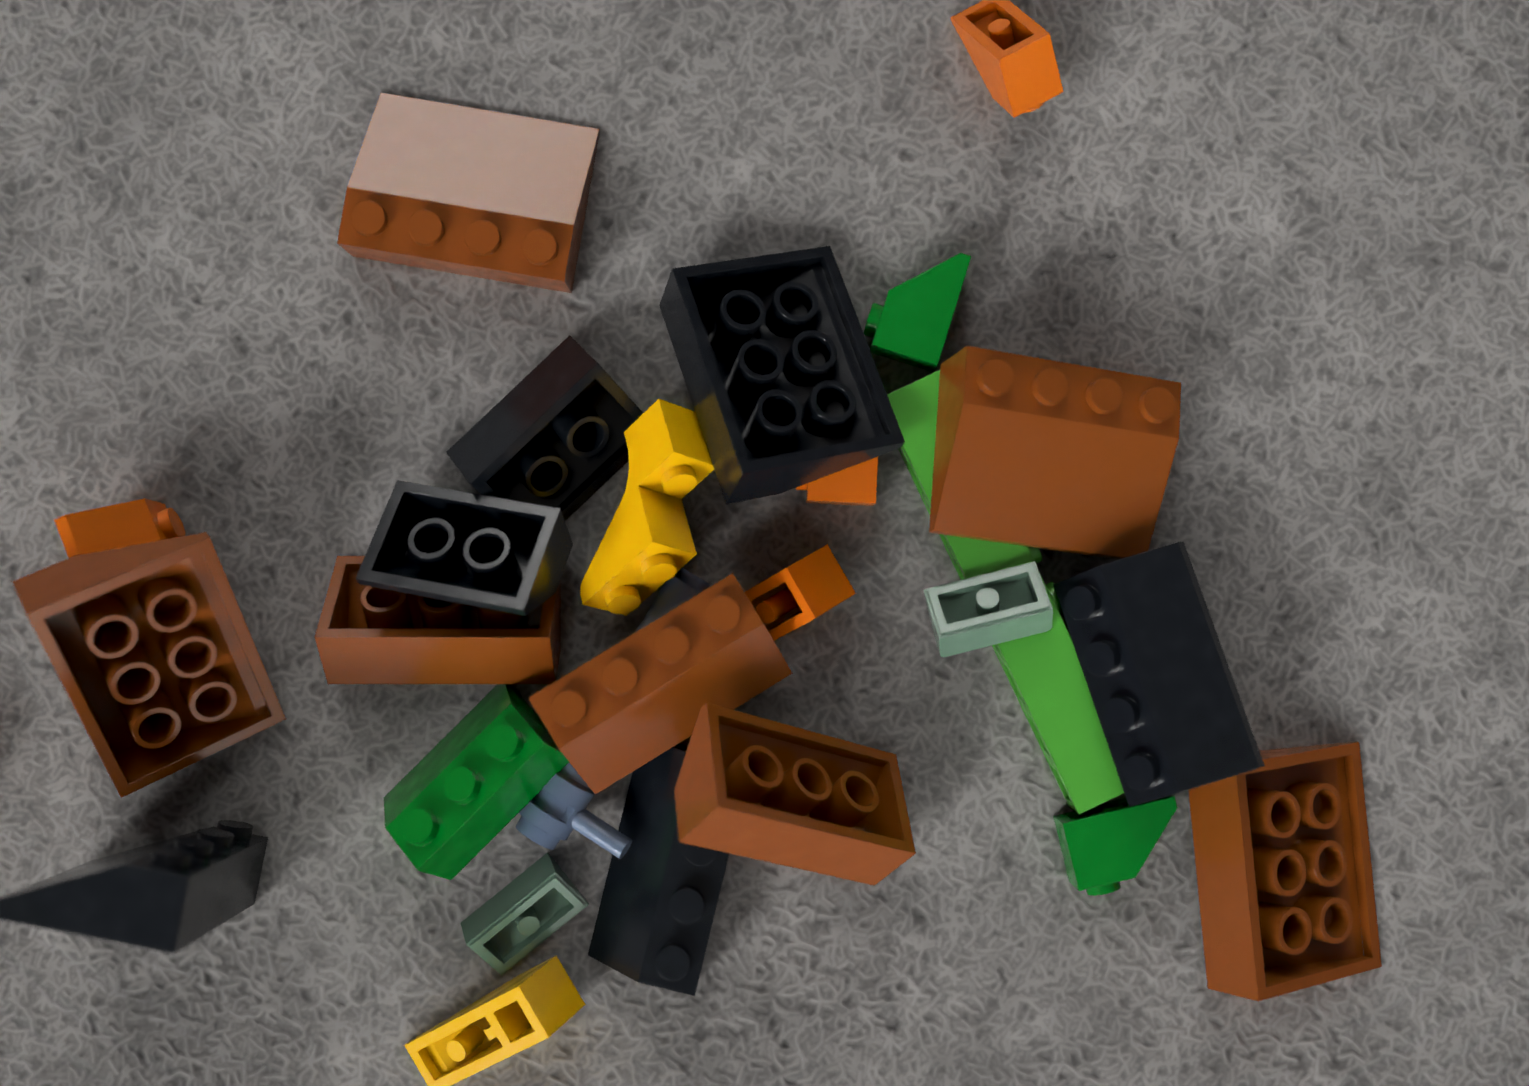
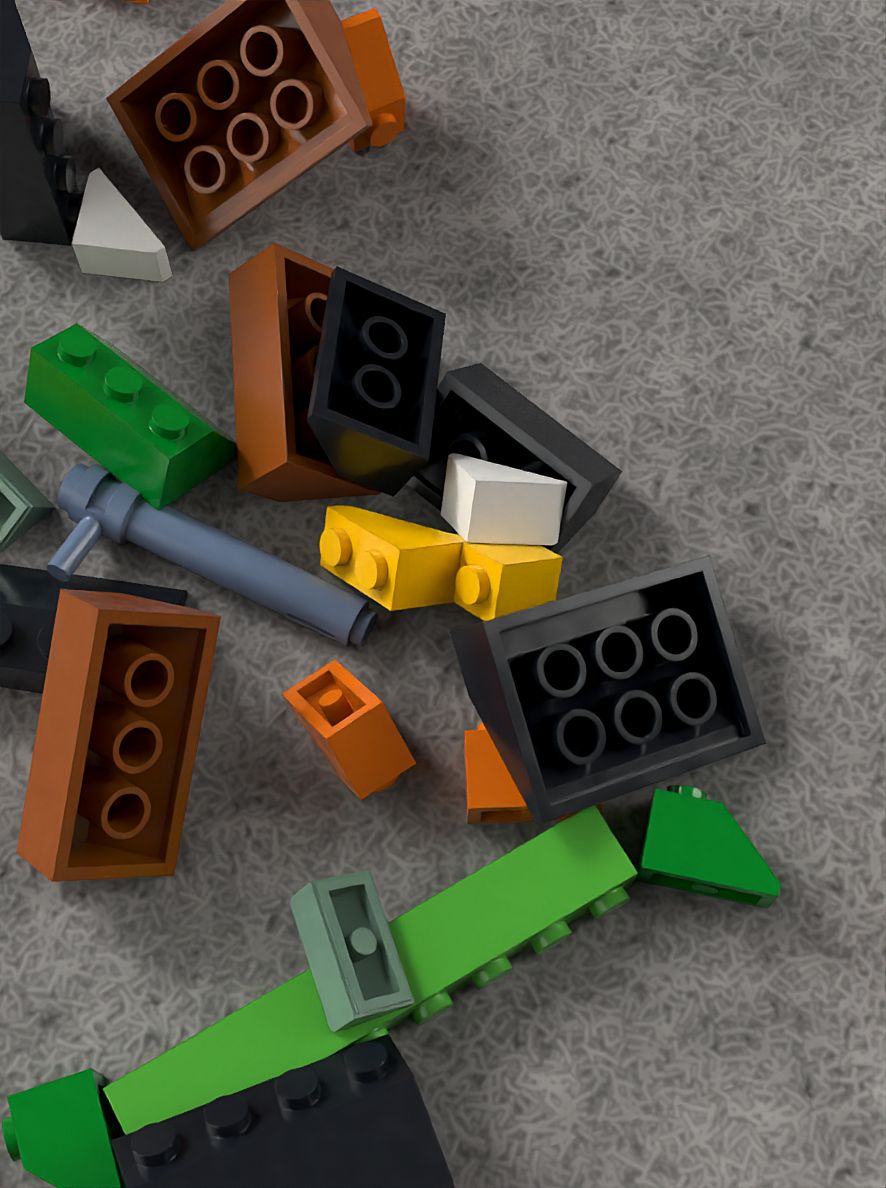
camera: 85 degrees right, 20 degrees down
(269, 796) = (114, 238): none -> white slope
(470, 192) = (762, 371): slope -> none
(598, 449) = (501, 503): none -> white slope
(654, 682) = (226, 551): dark orange slope -> none
(1051, 453) = (548, 1017): dark orange slope -> none

